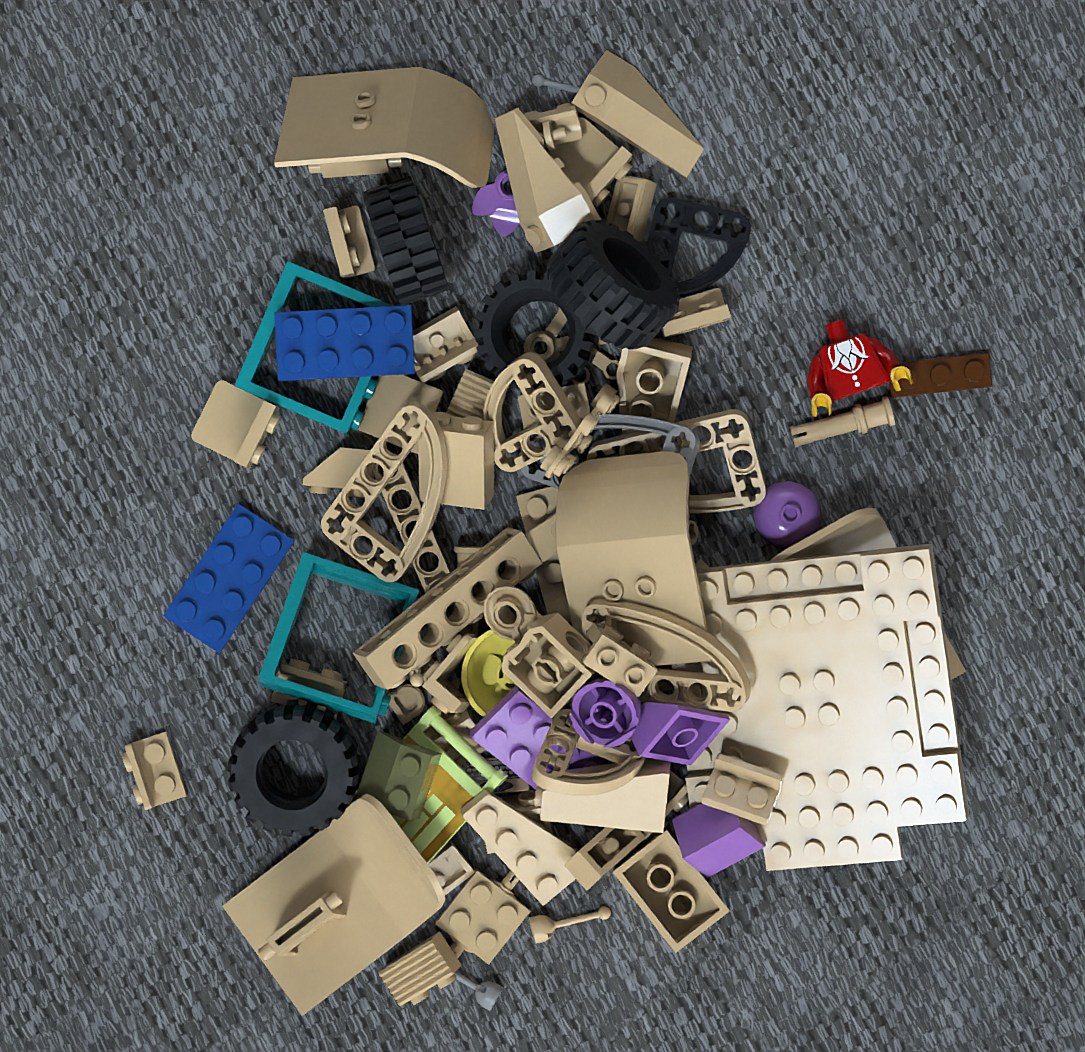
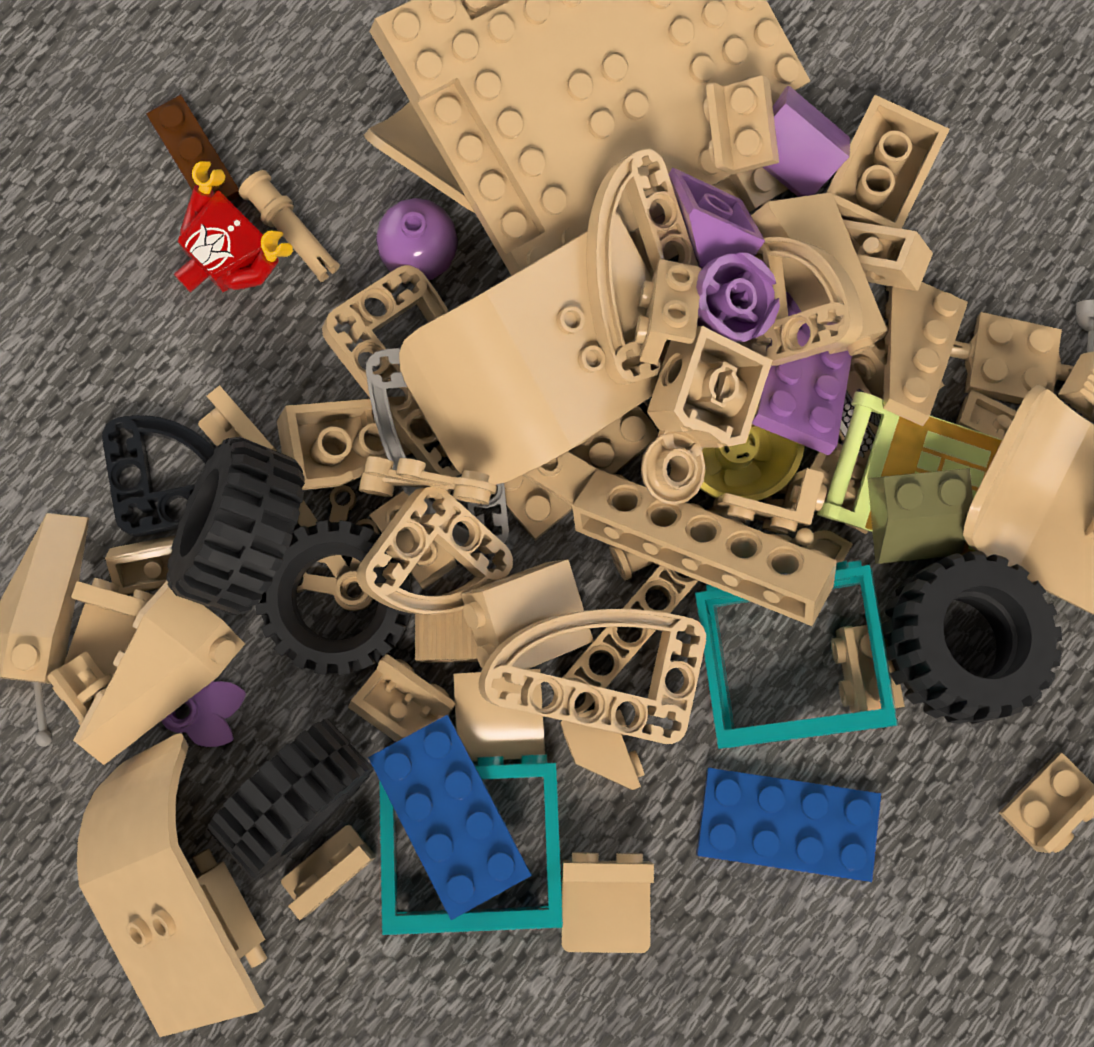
camera: 115 degrees left, 10 degrees down
(544, 927) = (988, 290): tan hinge -> none

